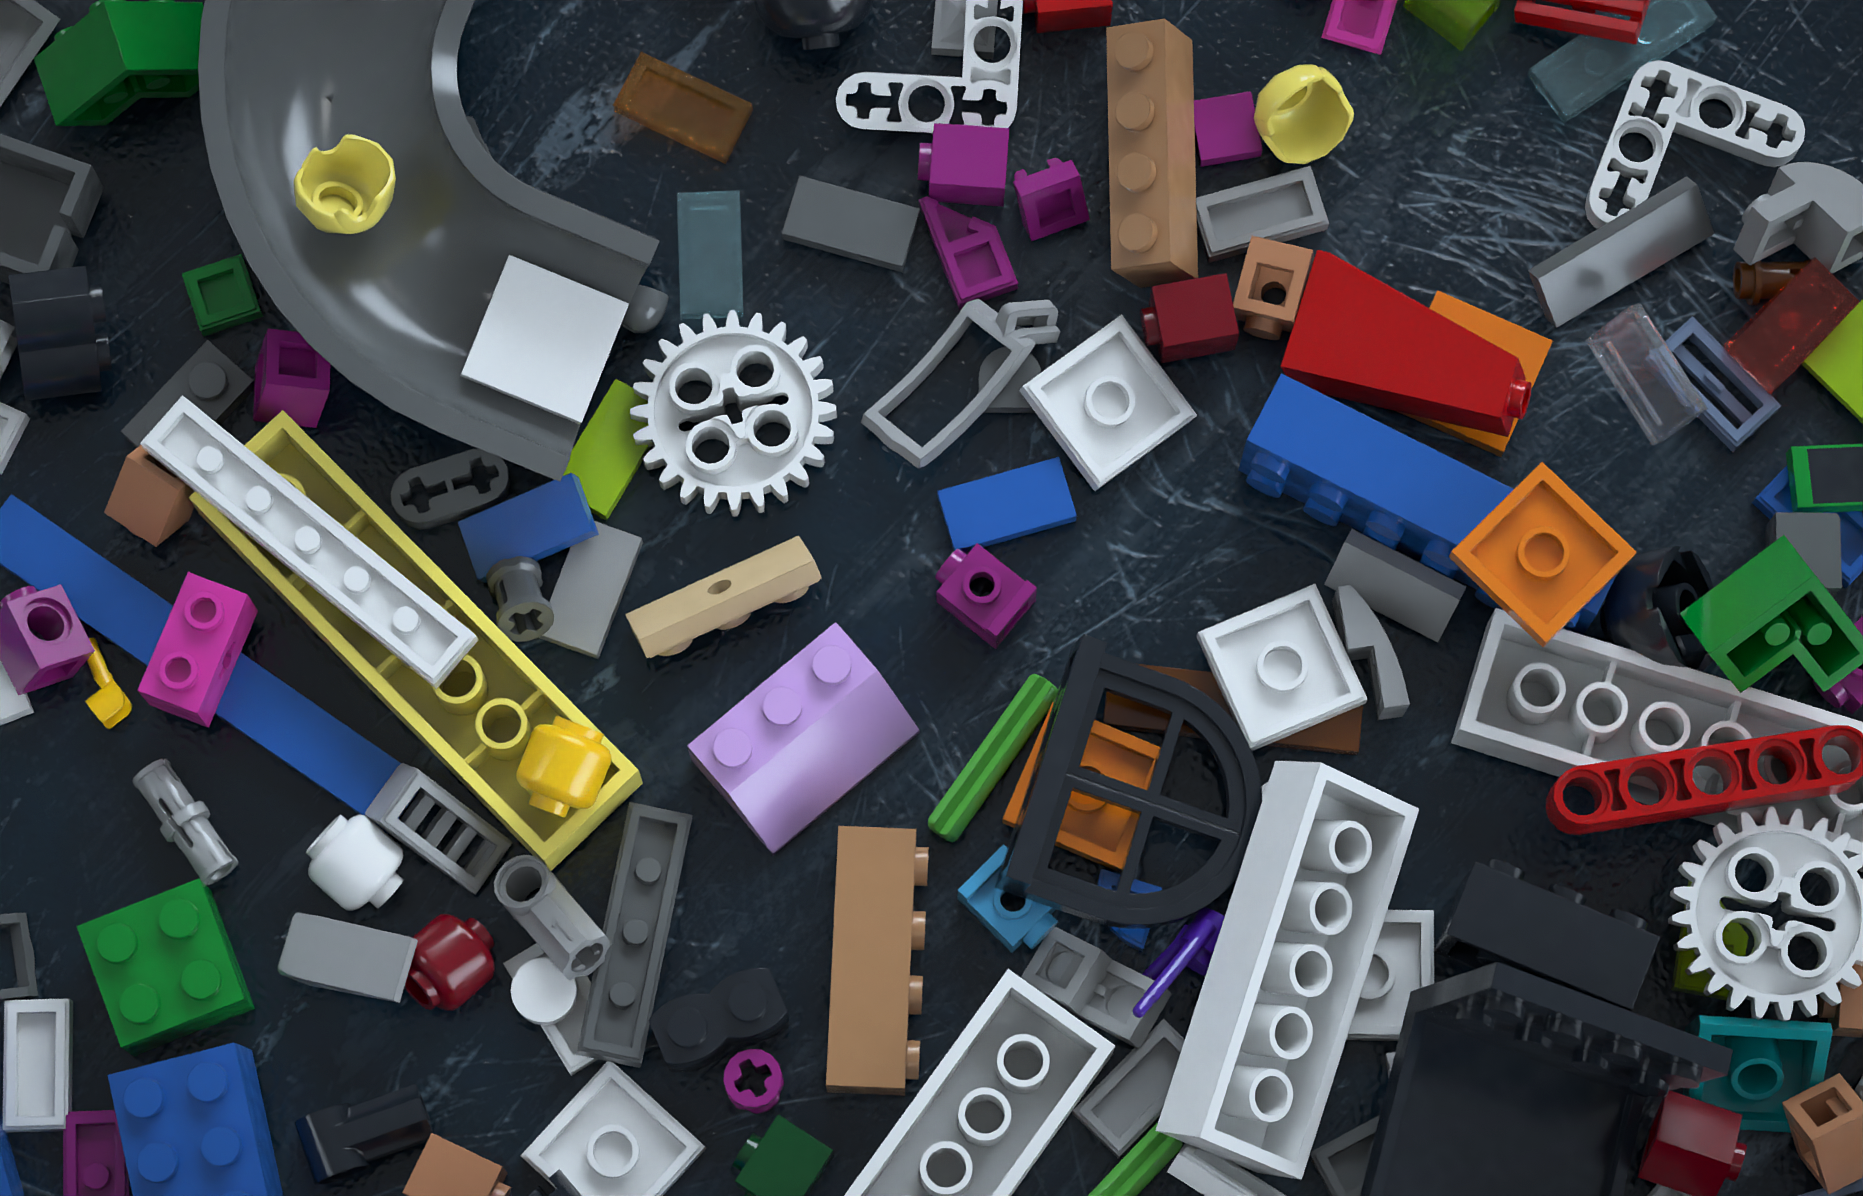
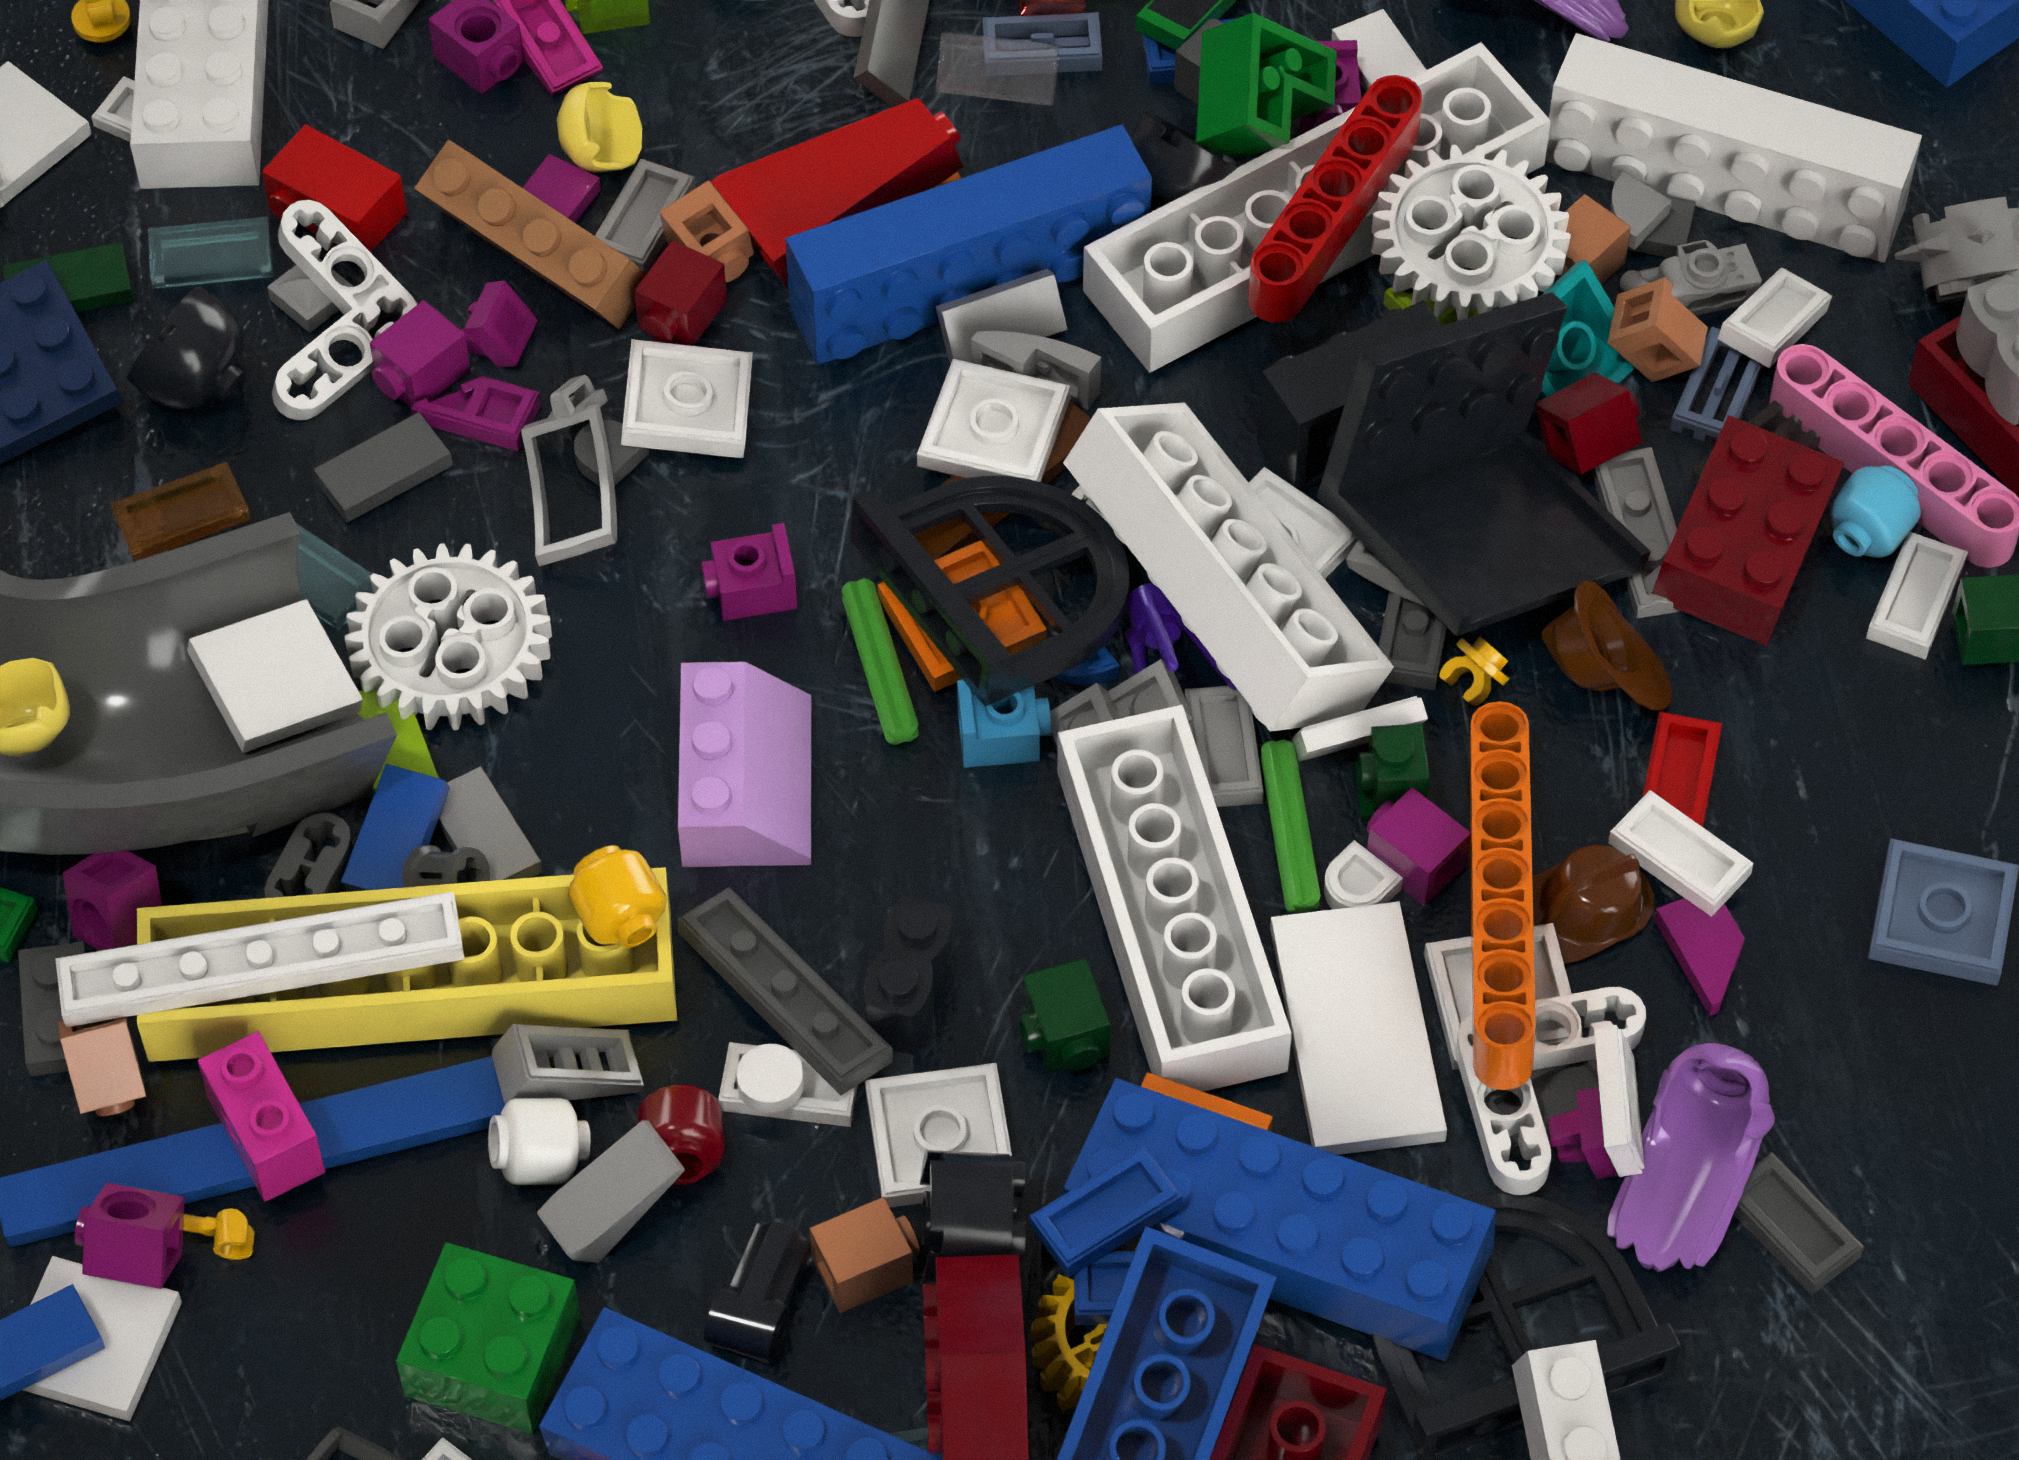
camera: 50 degrees left, 20 degrees down
(185, 821) = (338, 1245): light grey pin -> none
(551, 916) = (716, 1024): light grey piece -> none
(724, 598) = (583, 743): tan tile -> none
(761, 1063) = (965, 978): magenta bush -> none
(873, 961) = (961, 842): medium nougat brick -> none
(1007, 505) = (697, 515): blue tile -> none
(1542, 554) = (1078, 167): orange plate -> none

